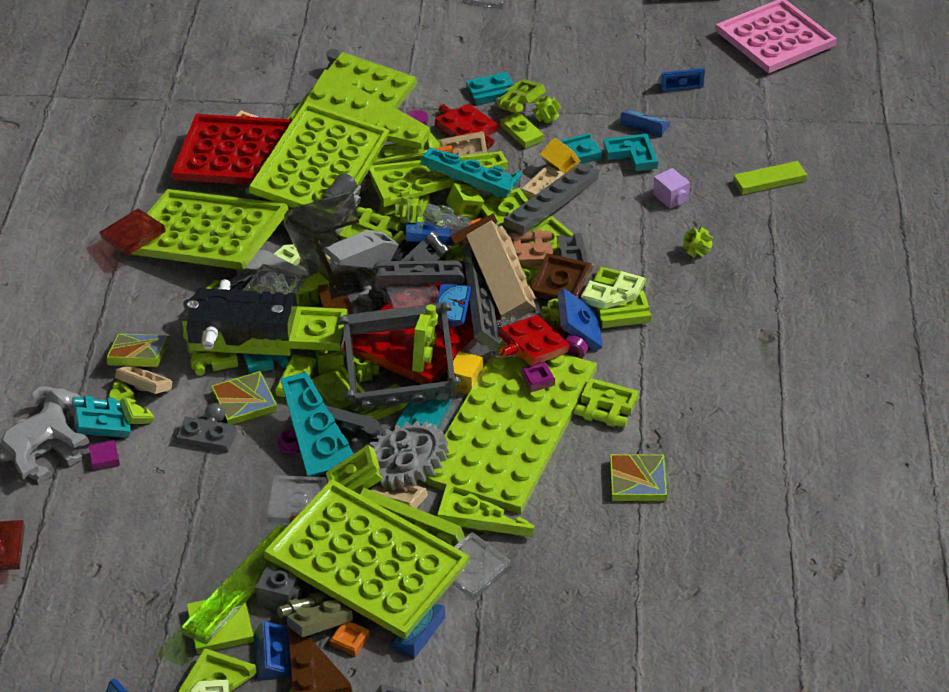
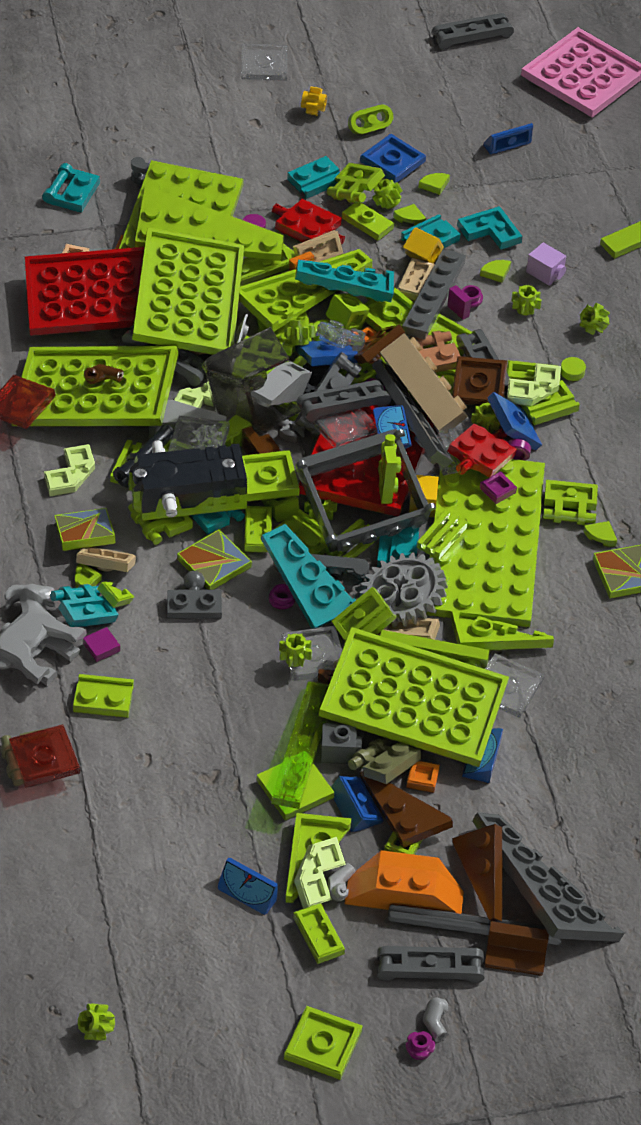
camera: 20 degrees left, 5 degrees up
(82, 502) = (103, 695): none -> lime plate
(165, 294) = (68, 480): none -> yellowish green tile
(210, 217) = (102, 372): none -> reddish brown arm
(273, 492) = (295, 650): none -> lime gear
(275, 73) = (78, 191): none -> teal plate
(341, 184) = (229, 319): dark grey cone -> none
(461, 408) = (436, 526): none -> lime tile
(514, 26) = (314, 101): none -> yellow gear
(558, 47) = (369, 119): none -> lime plate
(561, 130) = (409, 214): none -> lime tile
(566, 82) = (393, 157): none -> blue plate
(574, 209) = (459, 302): none -> magenta tile
(588, 206) = (475, 294): none -> magenta plate
(597, 107) = (434, 182): none -> lime tile
(623, 187) = (496, 270): none -> lime tile
(627, 437) = (602, 533): none -> lime tile
(639, 216) = (526, 300): none -> lime gear
(644, 122) = (489, 193): blue slope -> none
(661, 283) = (573, 368): none -> lime tile

